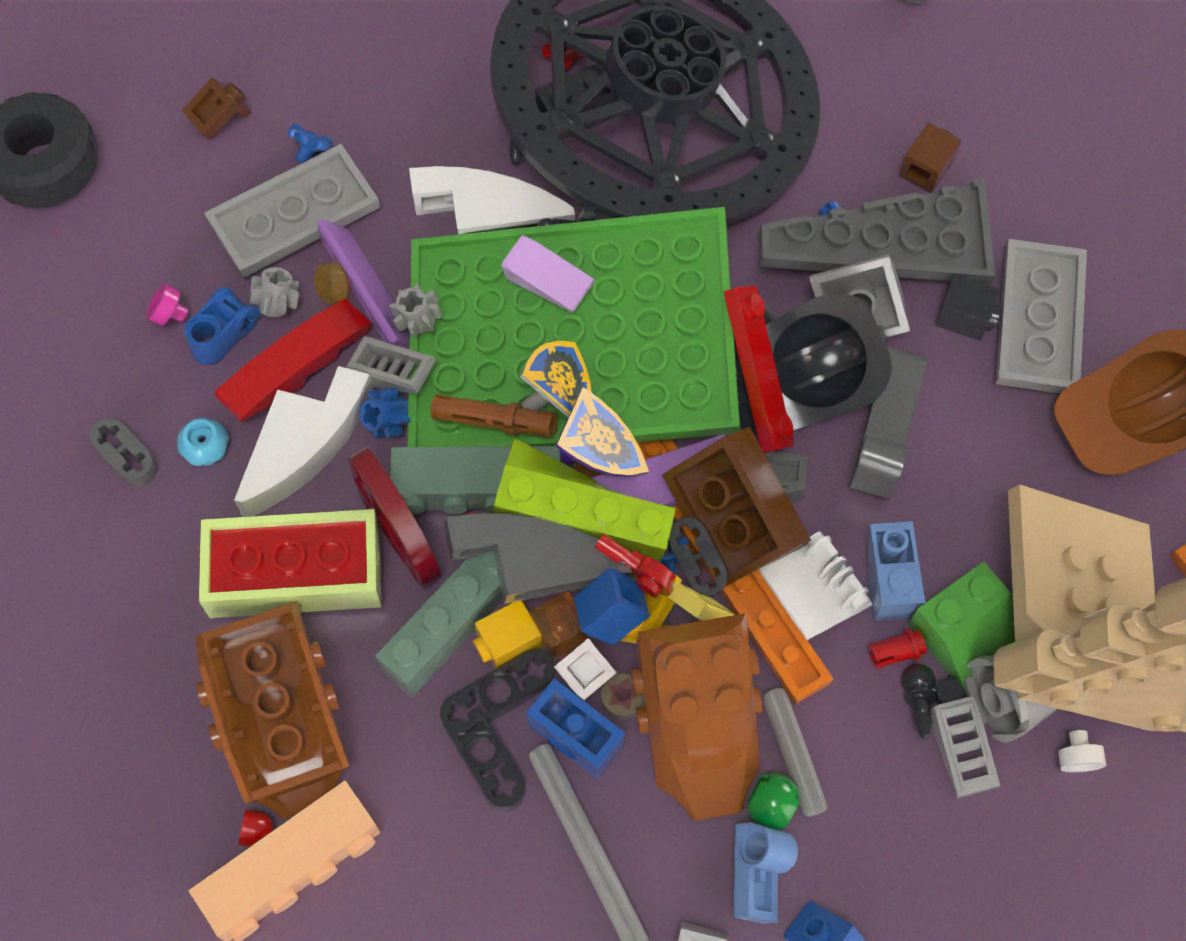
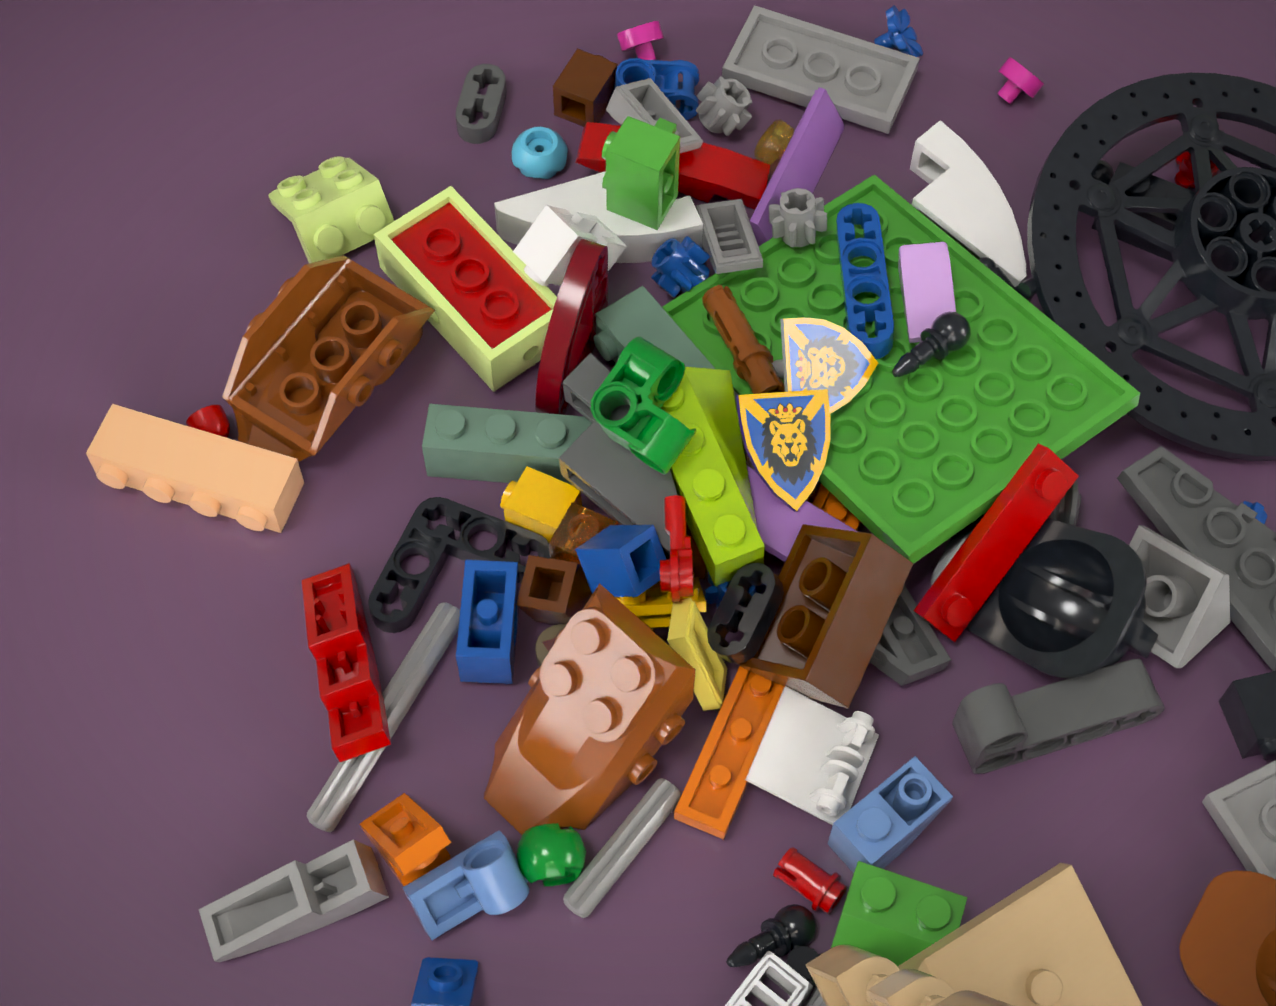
camera: 55 degrees right, 5 degrees down
(130, 616) = (333, 208): none -> yellowish green bracket
(177, 372) = (584, 88): none -> reddish brown brick
(248, 345) = (648, 103): none -> light grey slope
(308, 381) = (642, 170): none -> bright green brick
(328, 476) = (553, 239): none -> white brick
(409, 98) = (1018, 80): none -> dark pink tile
(502, 302) = (865, 279): none -> blue beam
(508, 498) = (645, 381): none -> green piece
(530, 850) = (345, 663): none -> red slope
(591, 284) = (948, 333): none -> black bar
(695, 891) = (407, 839): none -> orange slope

